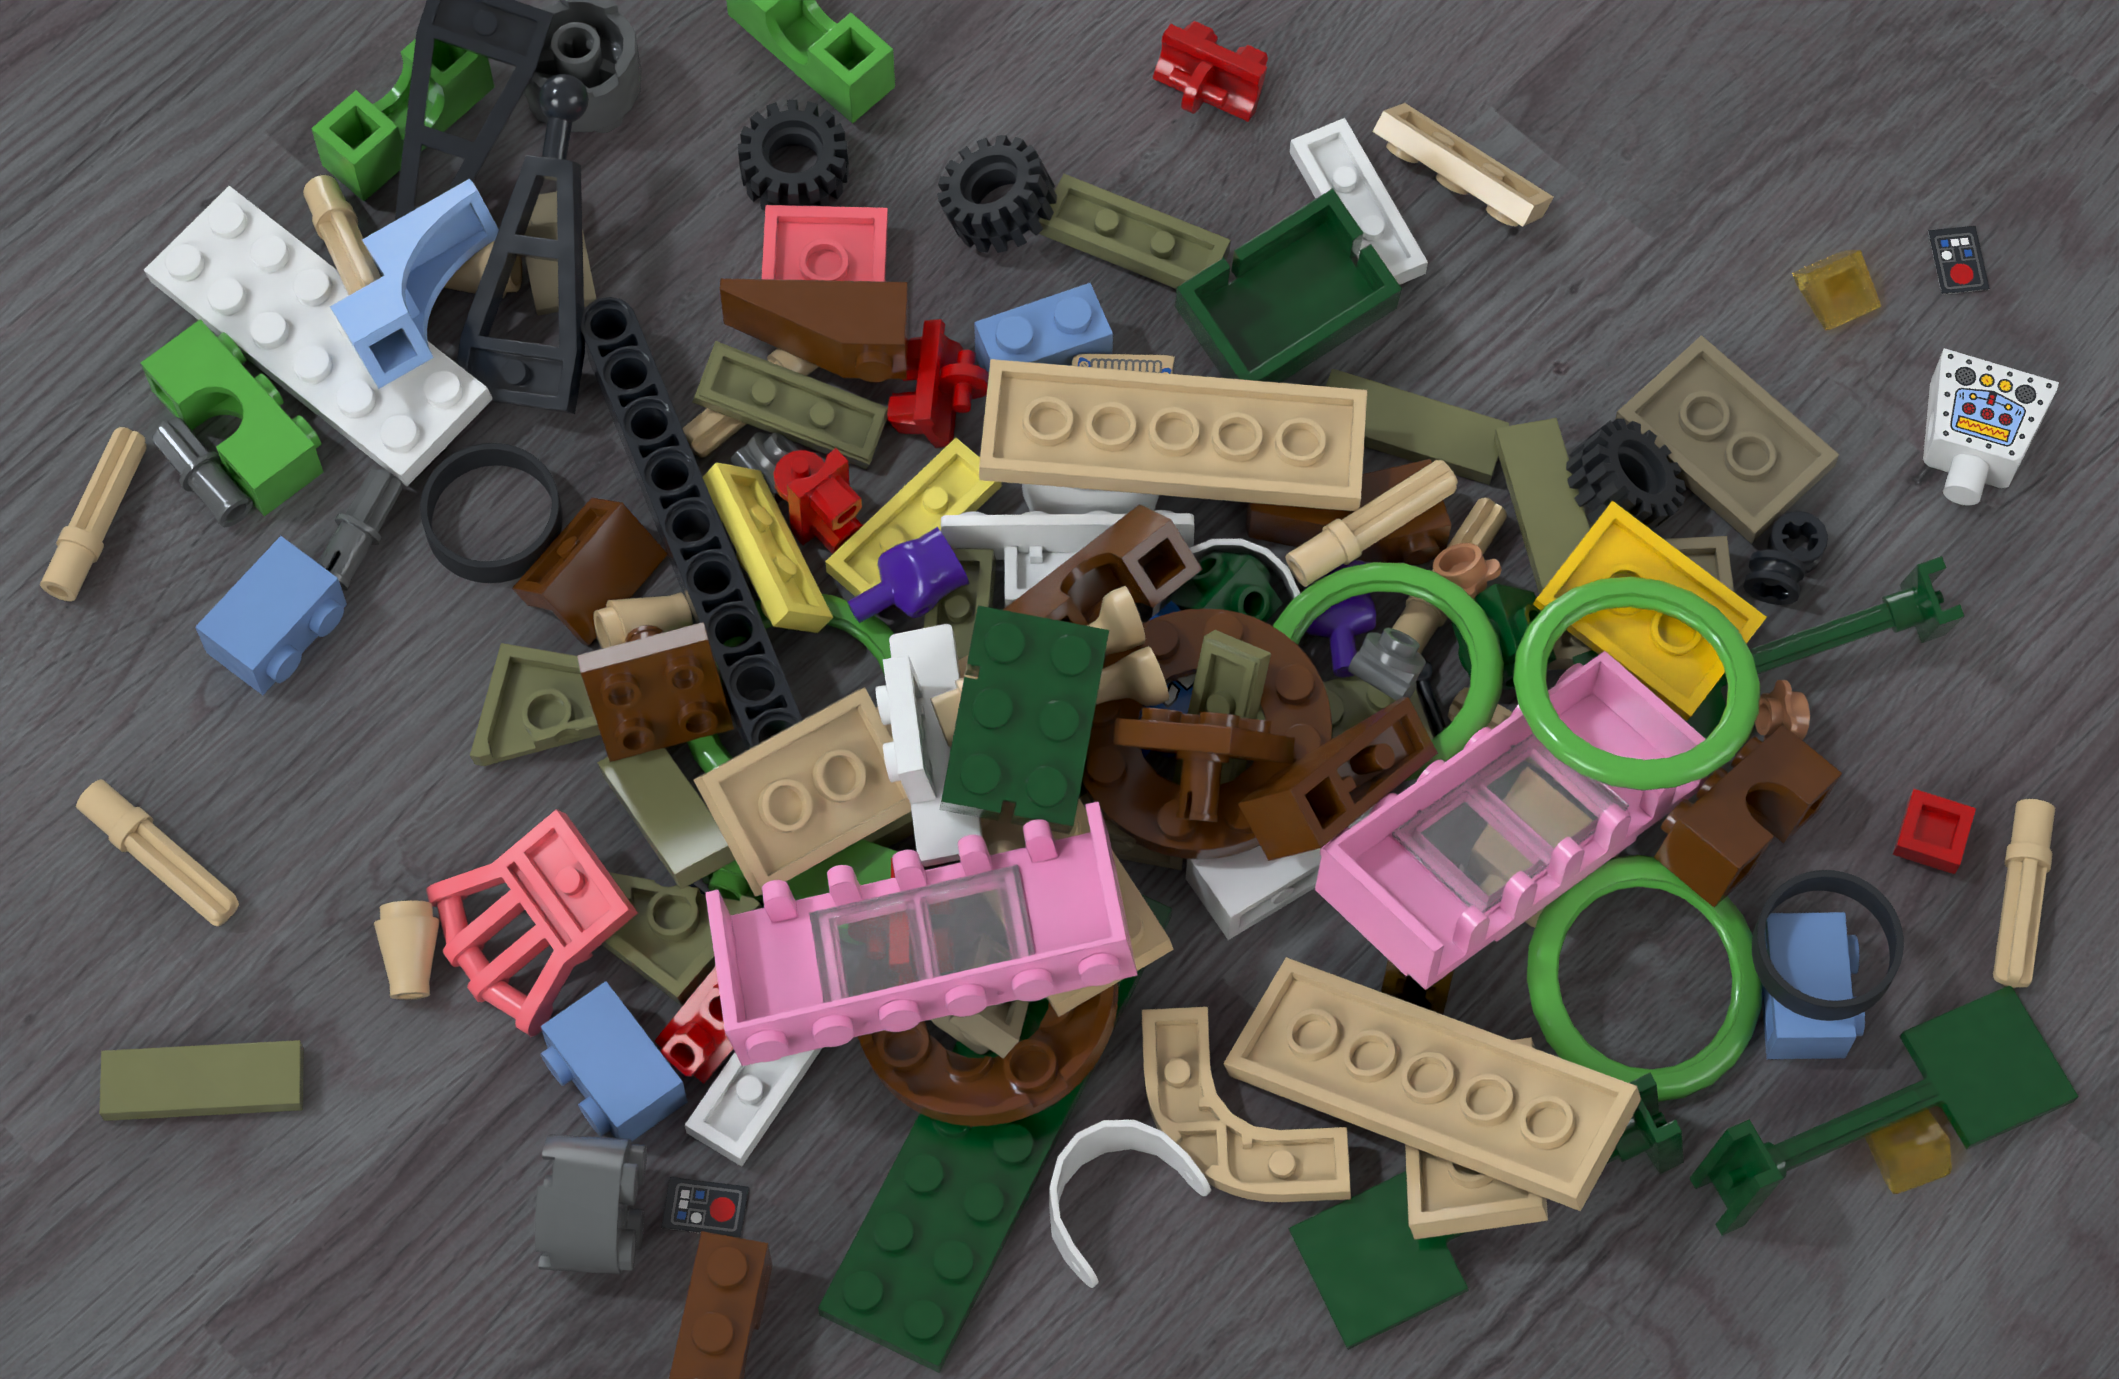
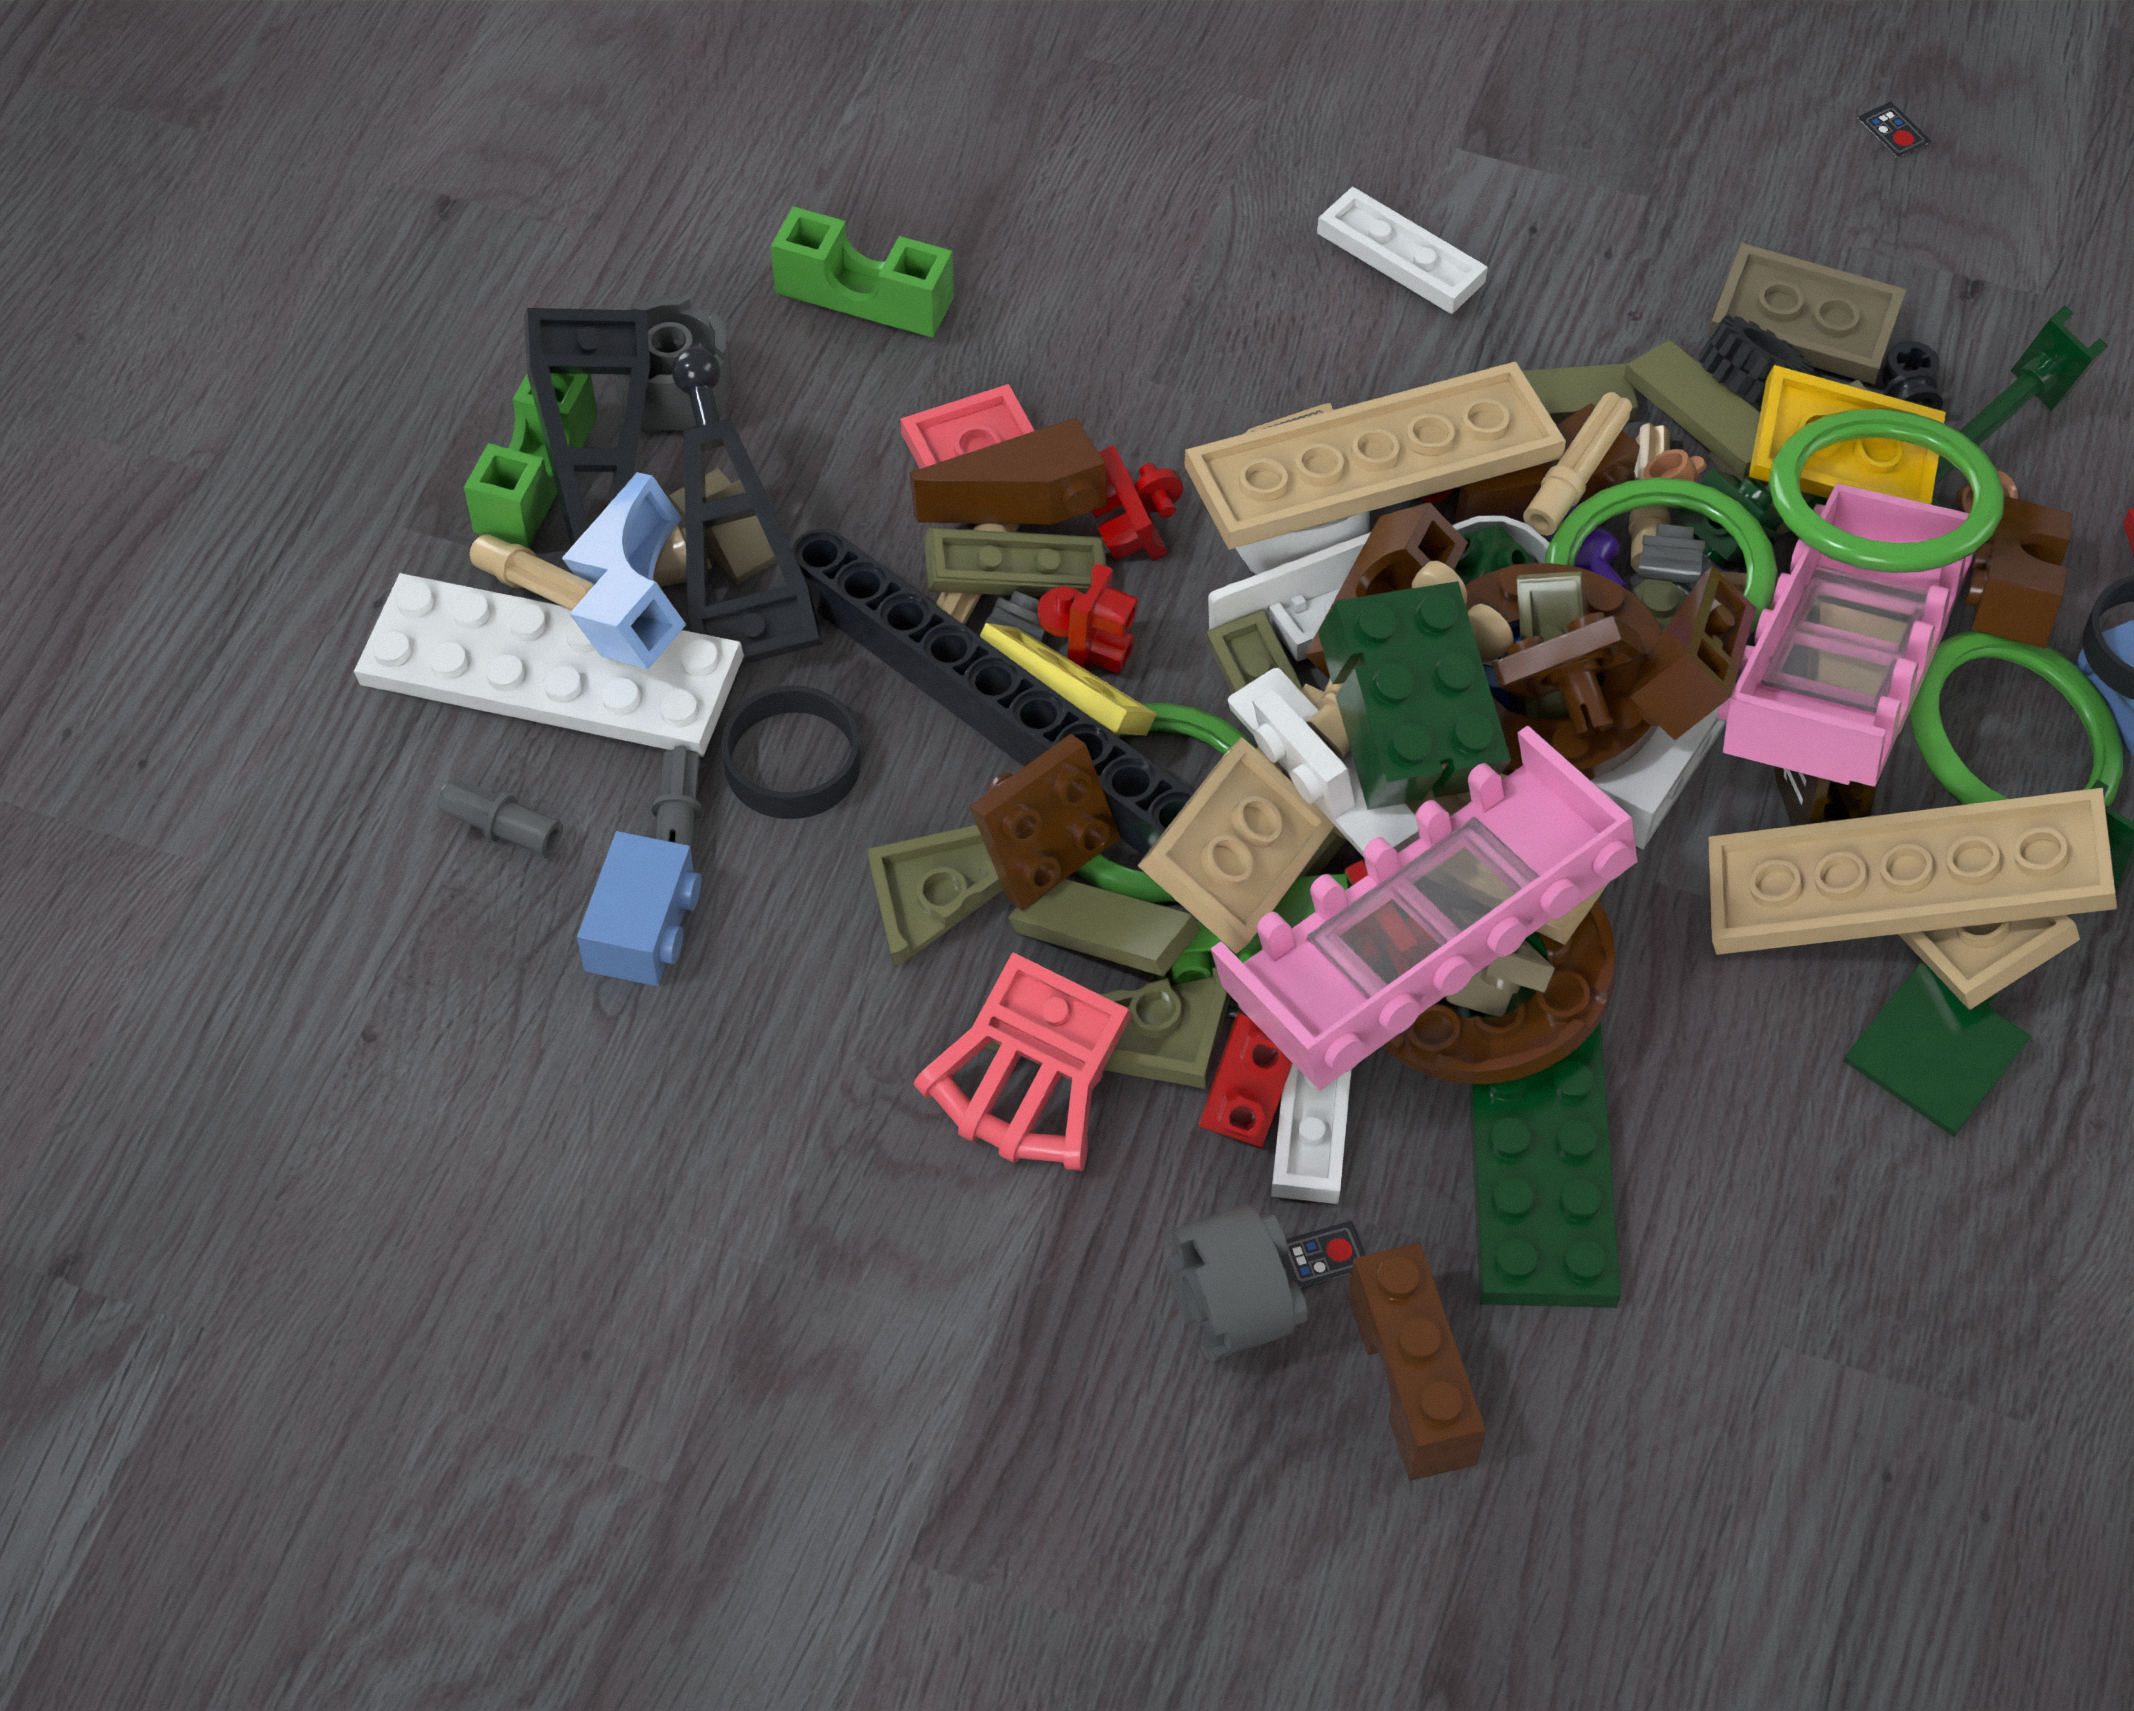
camera: 25 degrees left, 10 degrees down
(82, 539) = (416, 916): tan axle -> none
(134, 832) = (606, 1145): tan axle -> none
(201, 1080) = (789, 1337): olive tile -> none
(205, 378) = (467, 734): bright green arch -> none
(407, 945) = (923, 1137): tan cone -> none
(592, 561) = (909, 760): reddish brown panel -> none
(612, 1065) = (1173, 1158): medium blue brick -> none
(624, 615) = (971, 783): tan cone -> none
(788, 129) = (896, 354): black tyre -> none
(912, 578) = (1211, 652): dark purple piece -> none
(941, 488) = (1175, 621): light yellow plate -> none
(1008, 216) = (1112, 357): black tyre -> none
(1046, 330) = (1215, 413): medium blue brick -> none
(1104, 1138) = (1670, 1031): white piece -> none
(1131, 234) = (1230, 336): olive plate -> none
(1210, 72) = (1219, 192): red hips -> none
(1226, 1149) = (1739, 1006): tan plate -> none
(1290, 294) = (1395, 322): dark green piece -> none
(1462, 166) = (1467, 192): tan plate -> none
(1838, 288) = (1817, 178): clear yellow slope -> none
(1981, 422) = (1996, 228): white torso -> none

